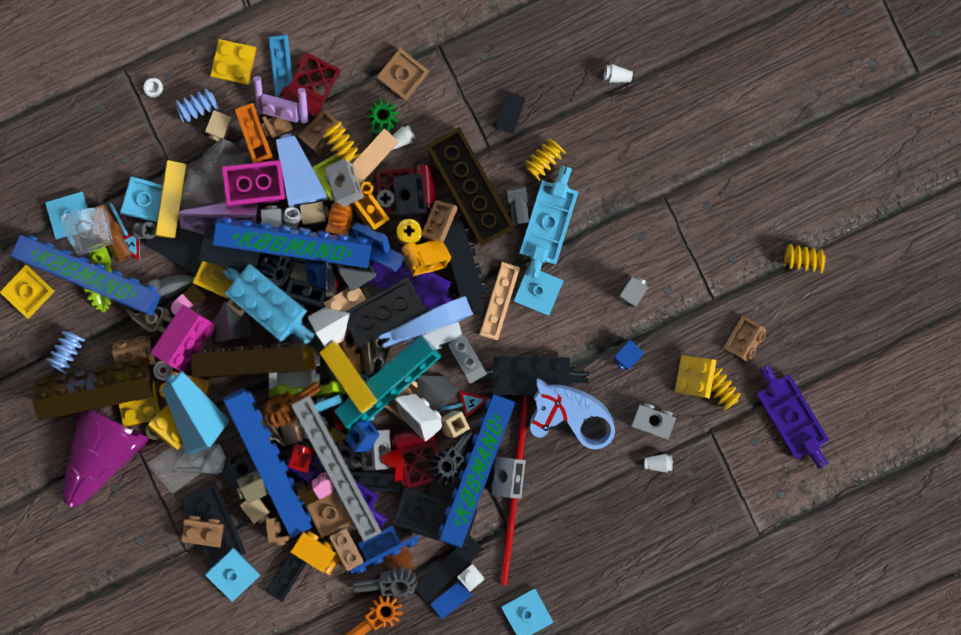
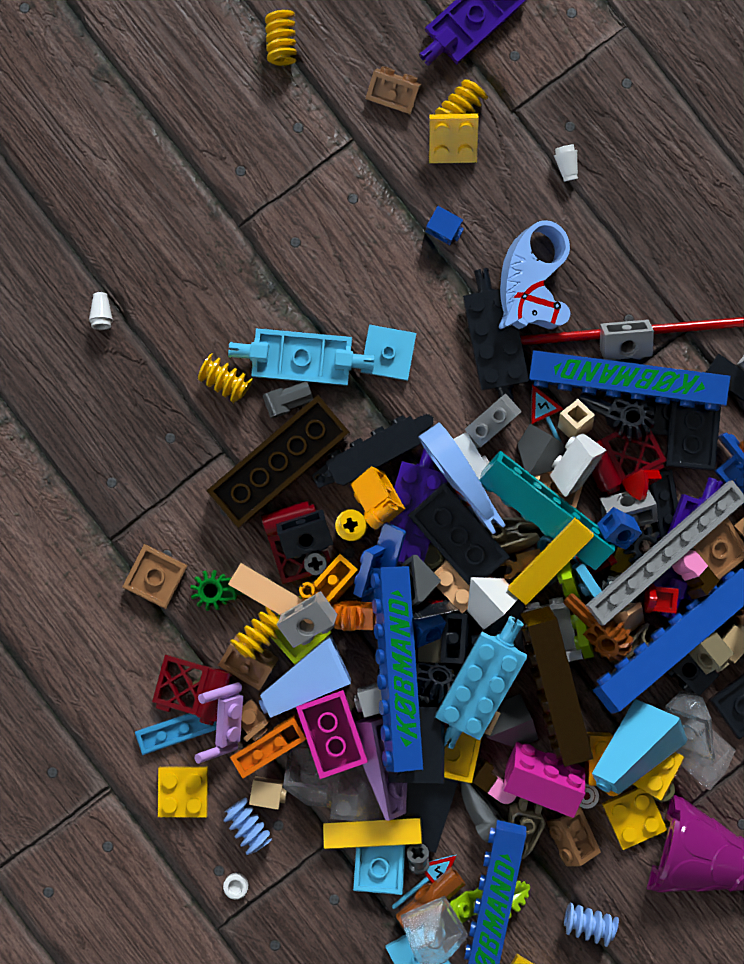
camera: 100 degrees left, 0 degrees up
(92, 388) = (632, 881): dark brown brick -> none
(291, 217) = (363, 676): white cone -> none
(314, 213) = (351, 649): tan brick -> none
(404, 136) = (232, 557): white cone -> none
(439, 221) = (329, 491): medium nougat bracket -> none
(499, 301) = (411, 397): light nougat tile -> none
(510, 113) = (176, 433): black tile -> none
(633, 291) = (366, 233): light grey brick -> none
(662, 429) = (524, 166): light grey brick -> none

